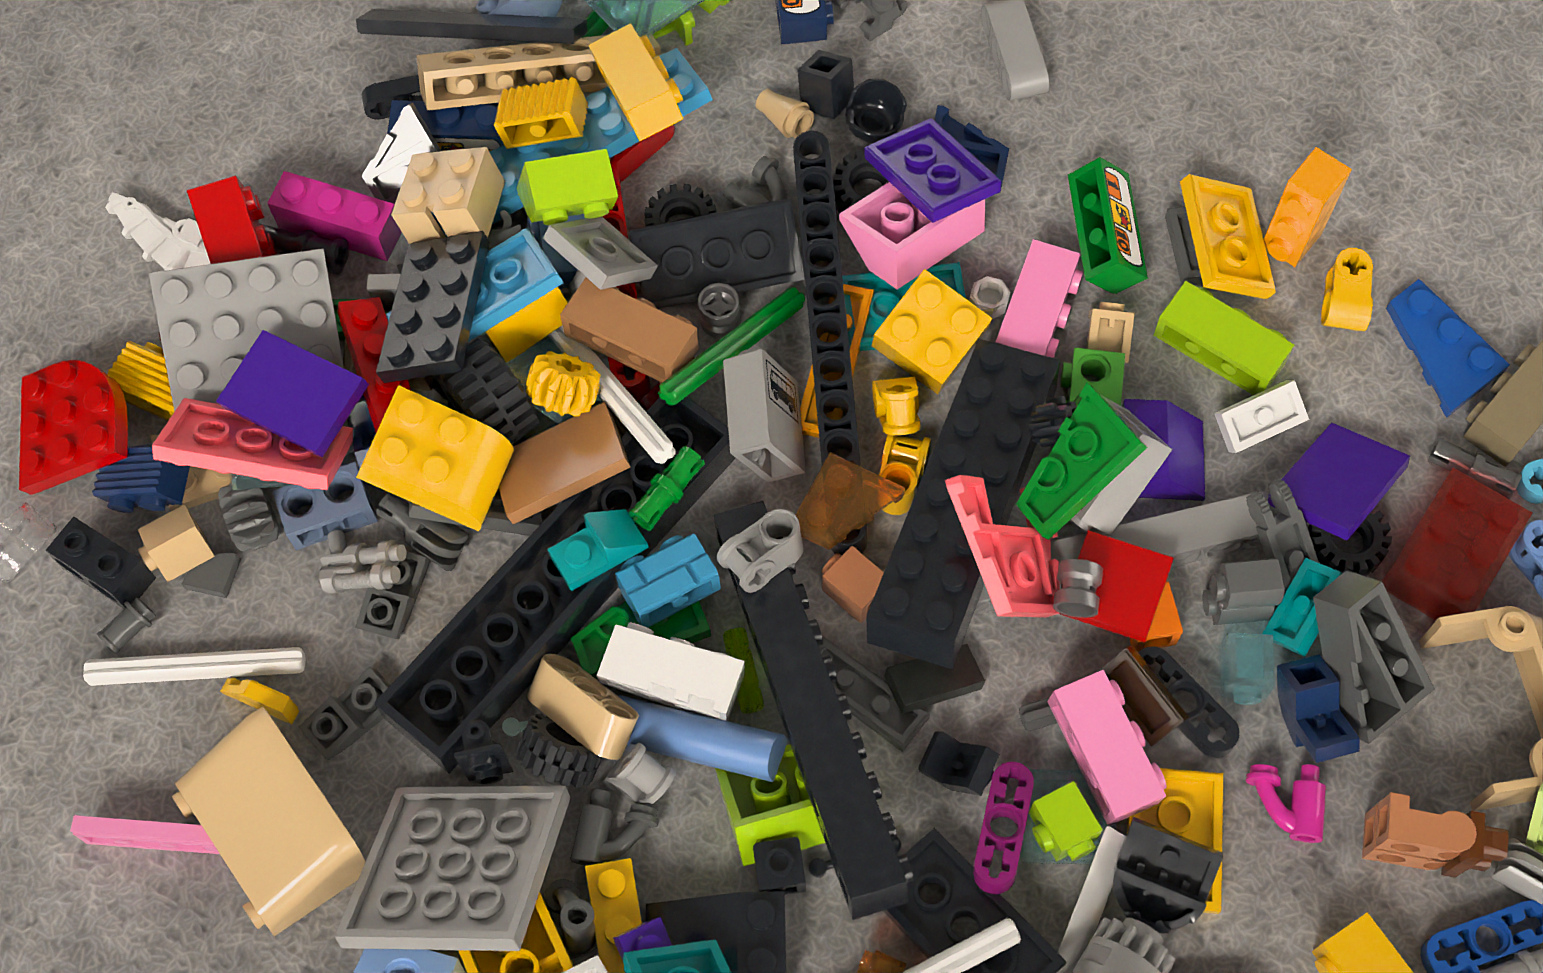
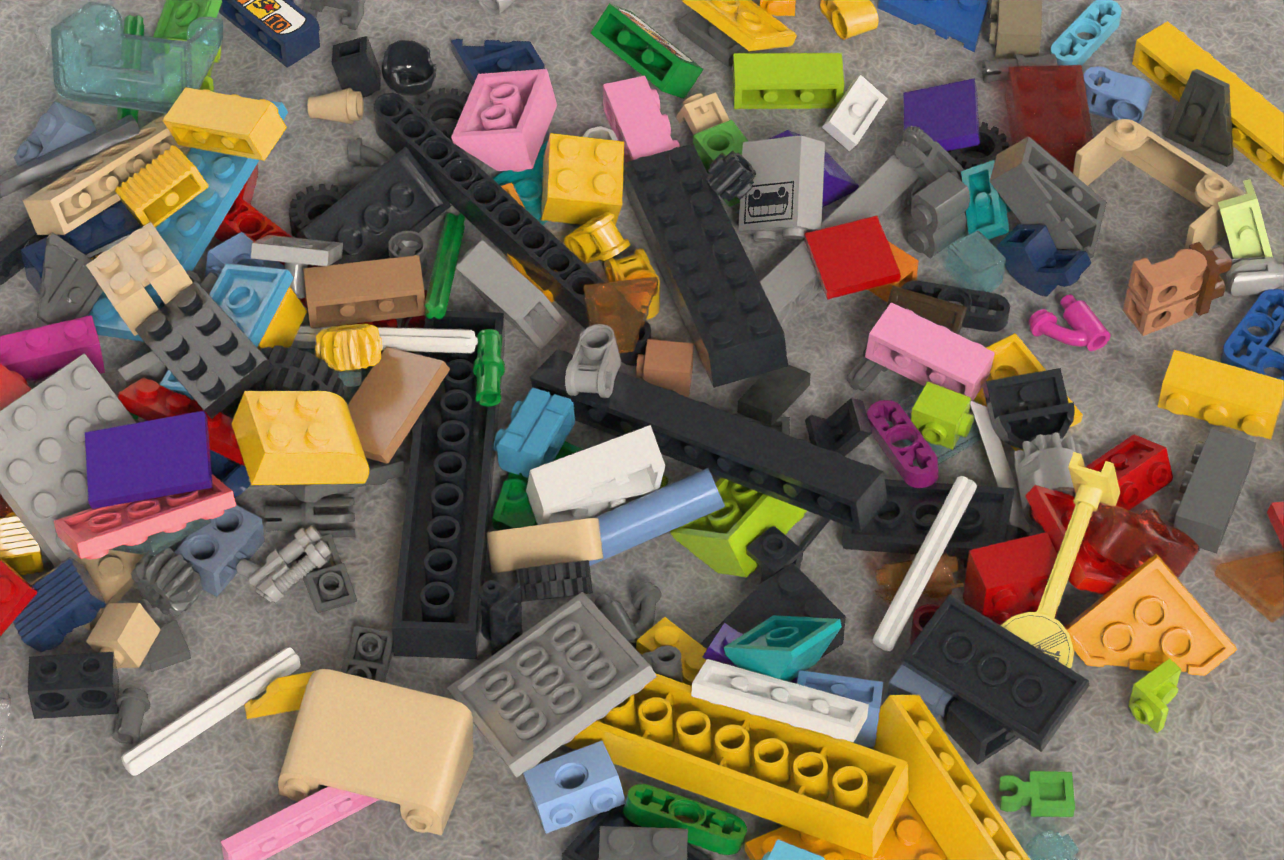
camera: 40 degrees left, 15 degrees down
(567, 187) = (236, 217): lime slope -> none
(605, 543) = (469, 435): teal slope -> none
(639, 776) = (625, 564): light grey piece -> none
(932, 170) = (493, 75): dark purple tile -> none
(1010, 558) = (768, 259): coral wing -> none
(1078, 588) = (834, 267): flat silver wheel -> none
(1085, 459) = (773, 180): green wing -> none

